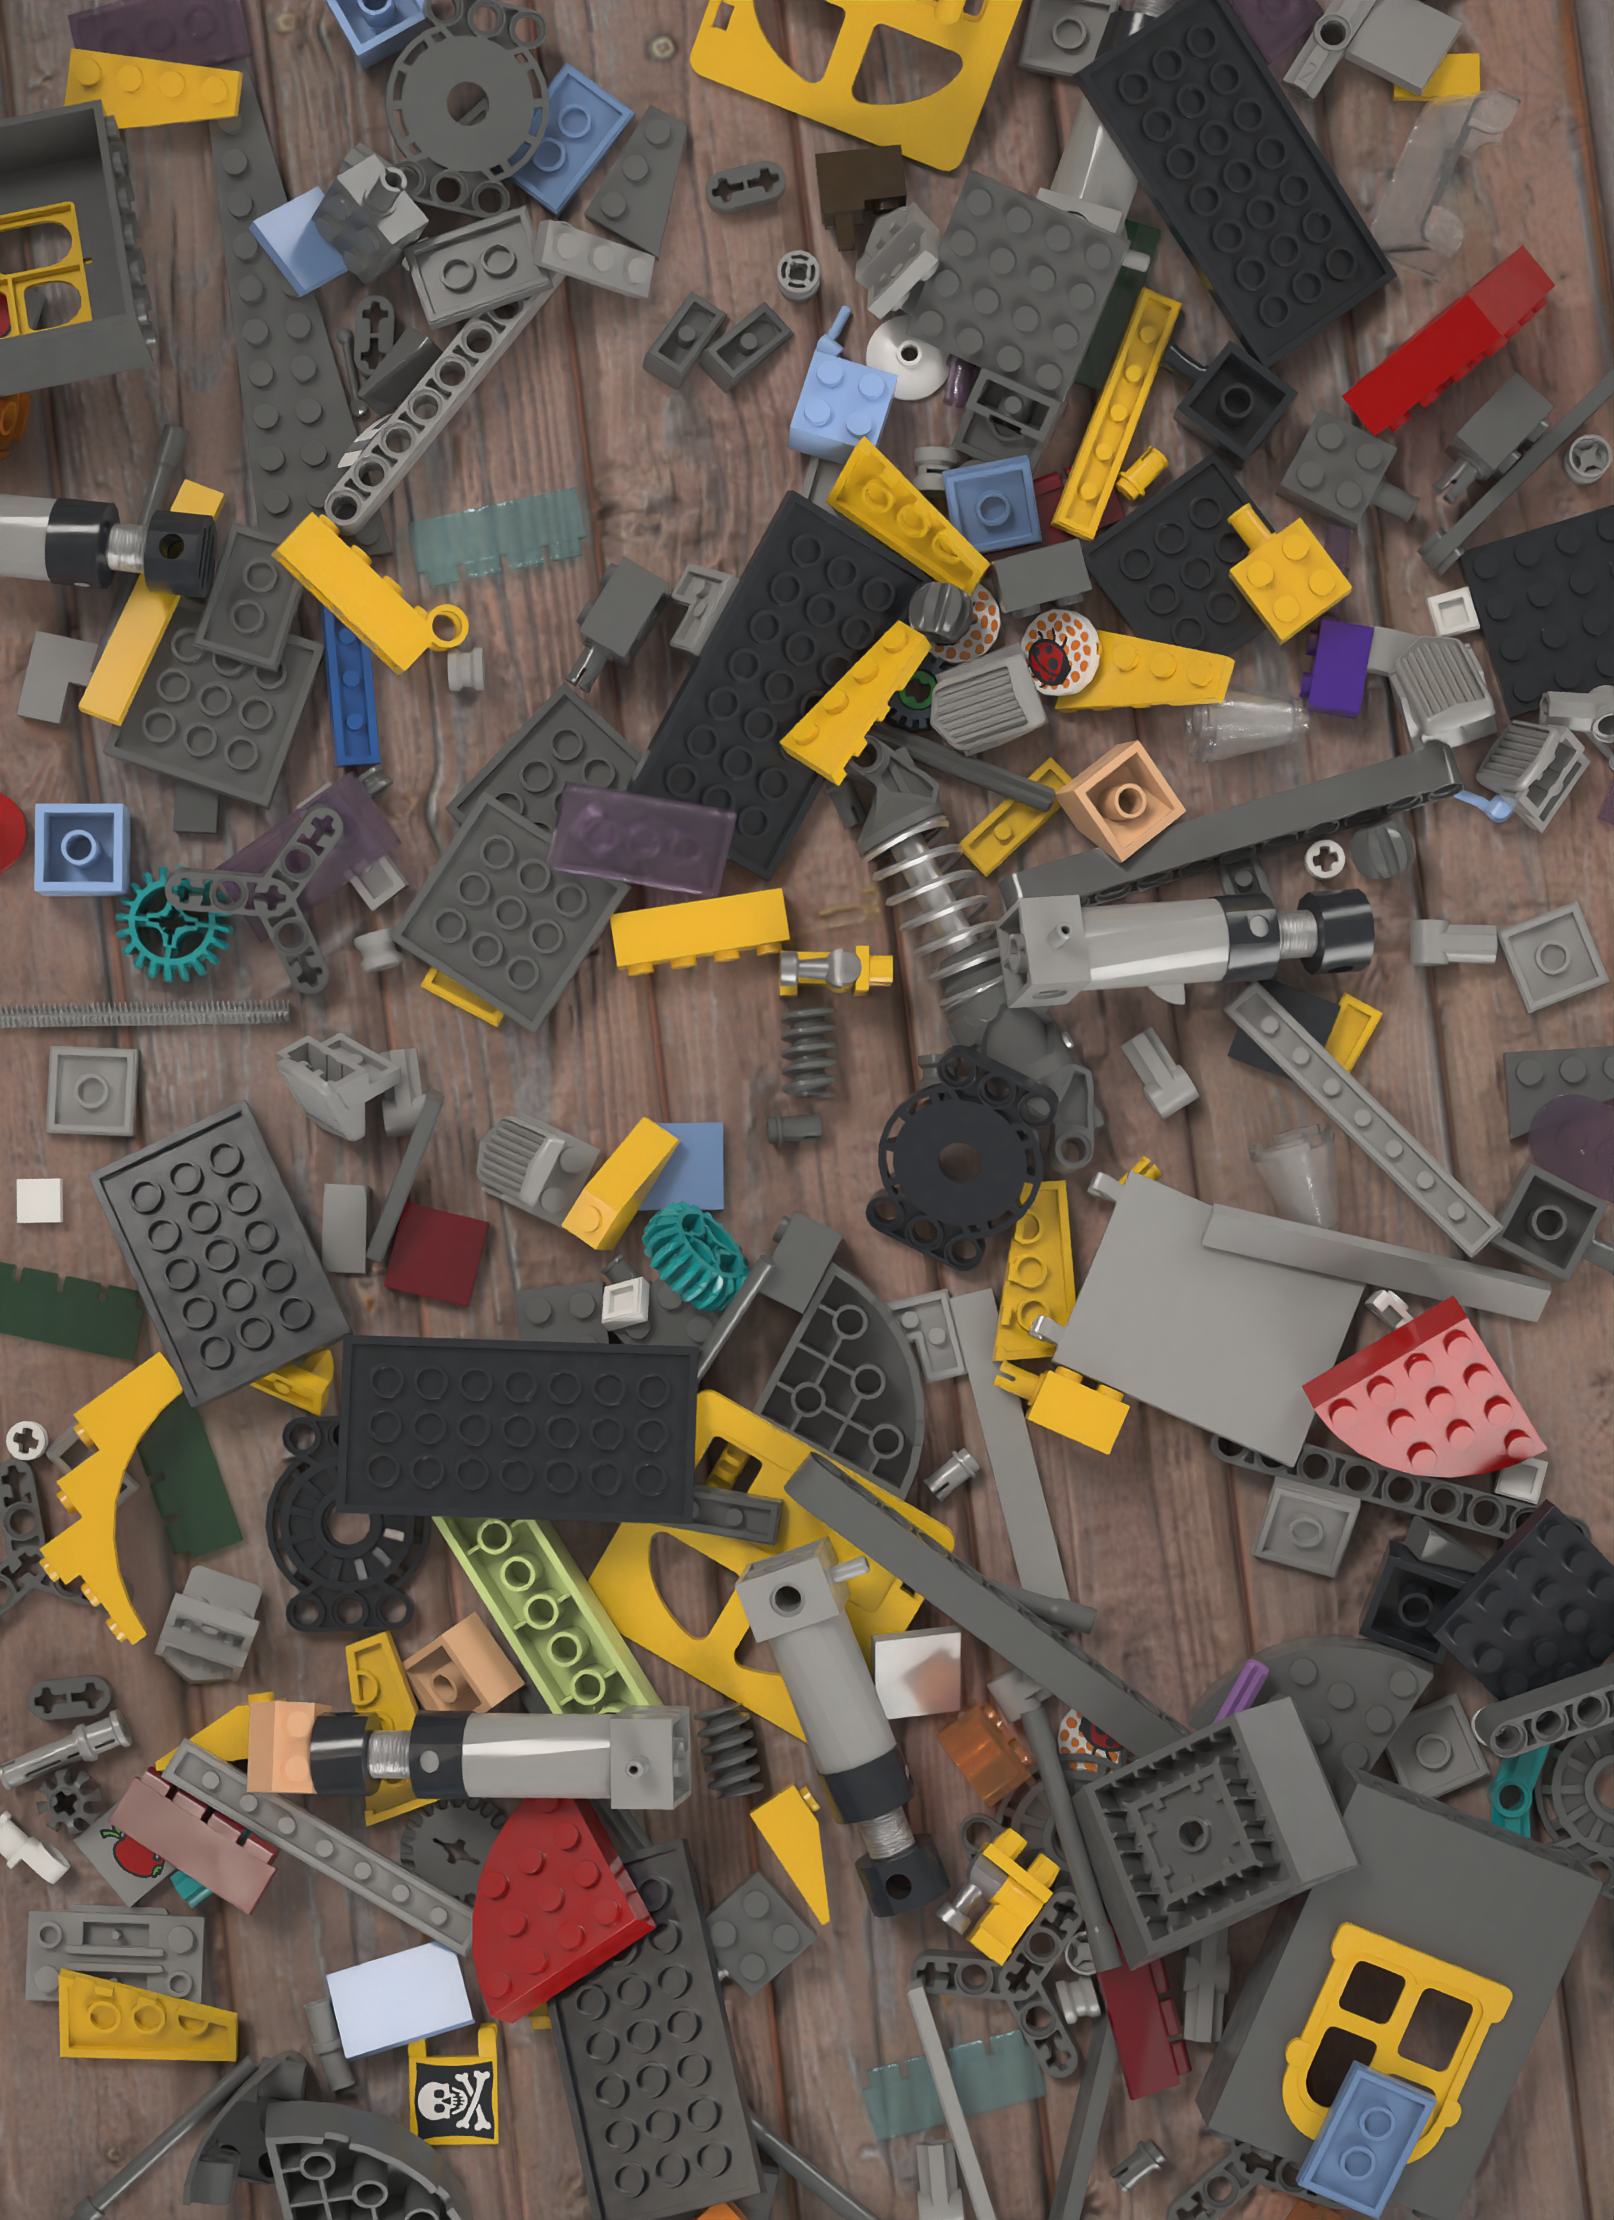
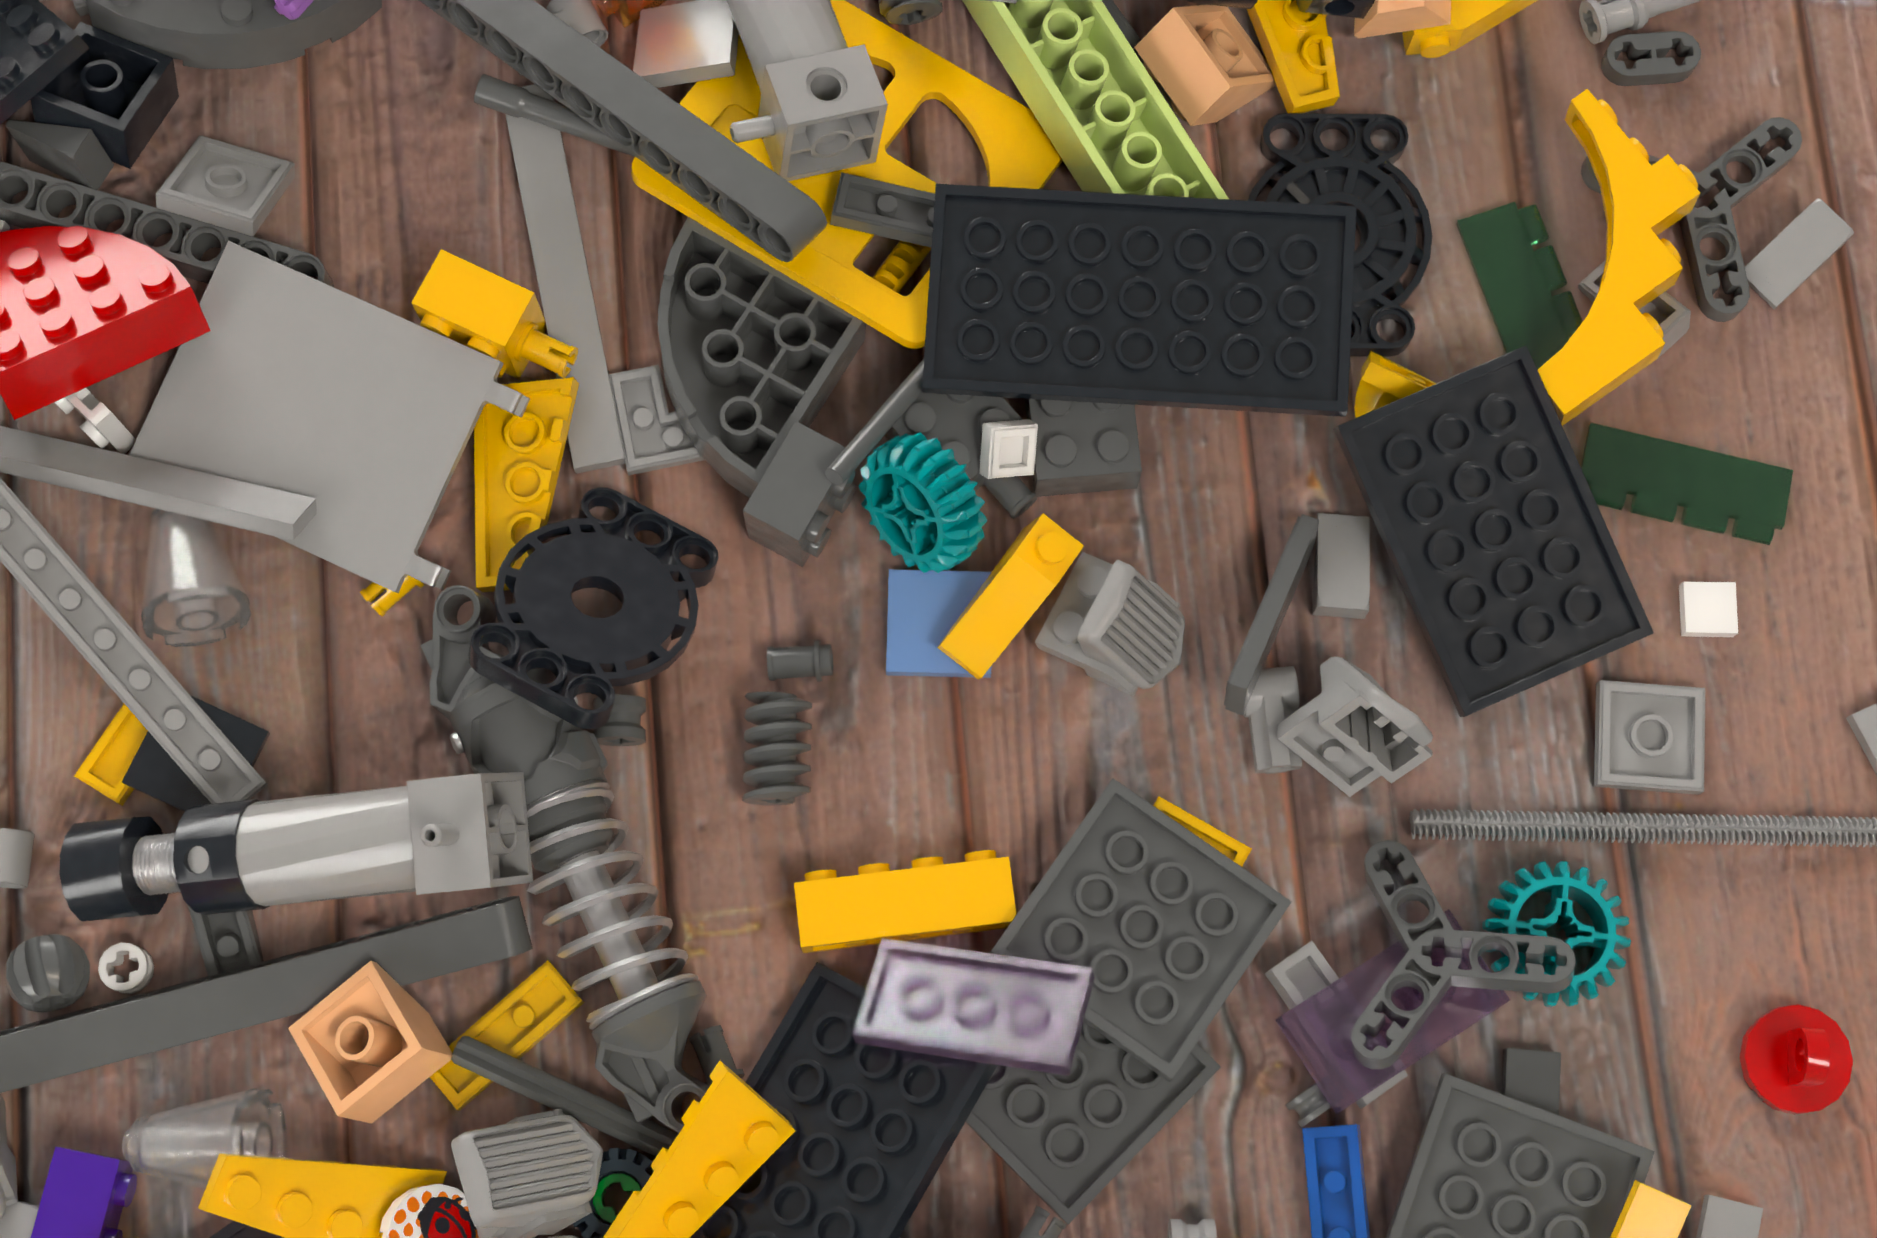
camera: 175 degrees right, 10 degrees down
(39, 1433) = (1725, 330): white bush -> none
(82, 850) = (1676, 1026): light blue brick -> none
(210, 1627) = (1492, 125): light grey piece -> none
(378, 951) = (1305, 890): light grey wheel -> none
(436, 1254) = (1232, 531): dark red tile -> none
(834, 970) = (738, 846): hips -> none
(952, 1474) = (633, 262): light grey pin -> none
(1164, 1082) = (348, 701): light grey piece -> none

